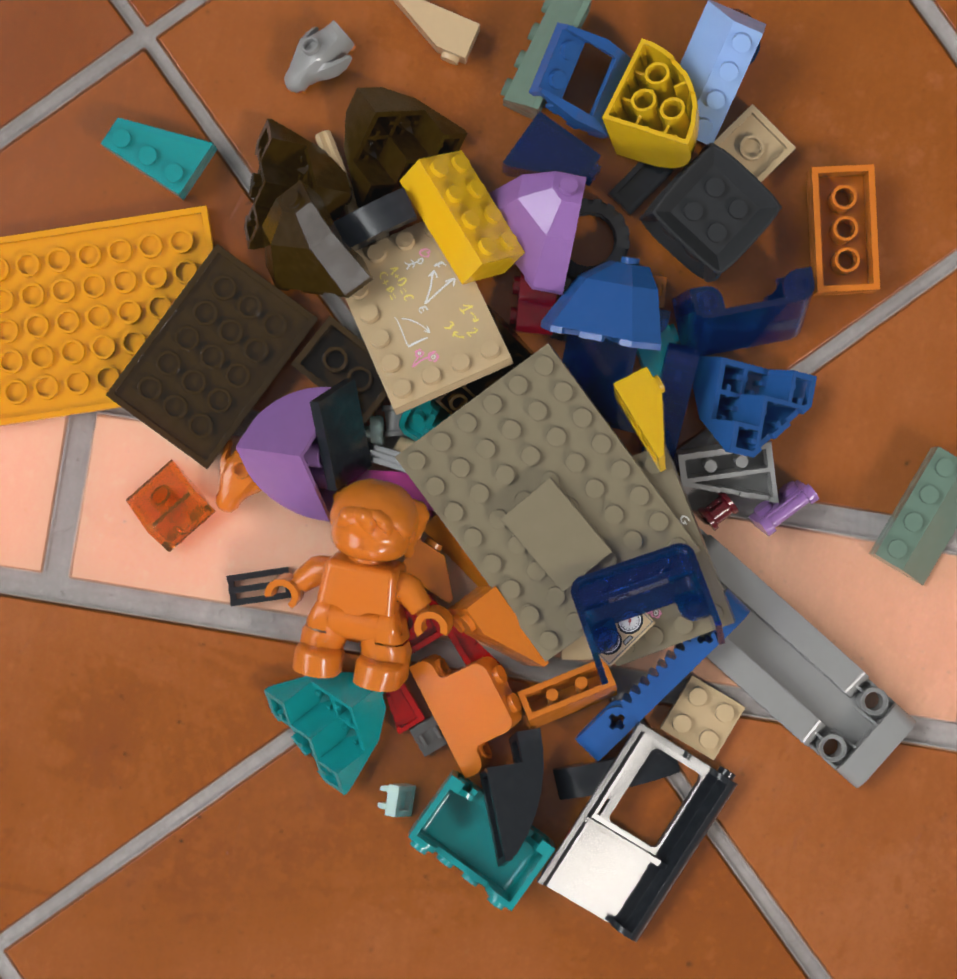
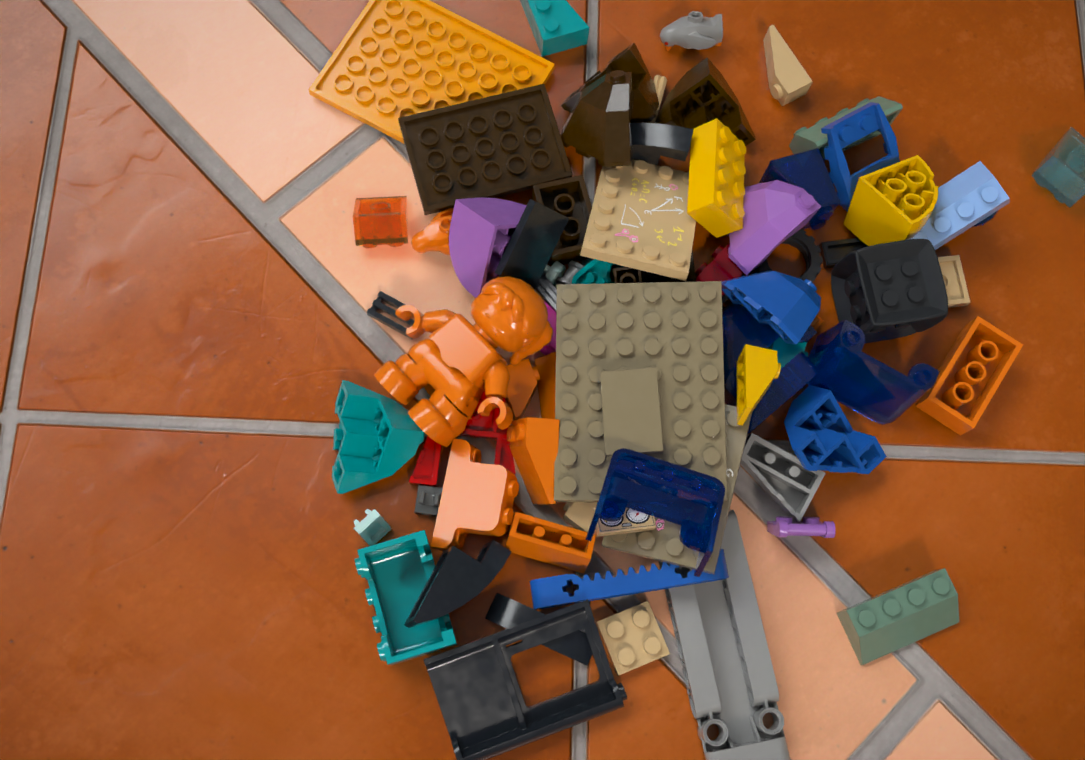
camera: 30 degrees right, 15 degrees down
(718, 510) = (750, 498): dark red bush -> none

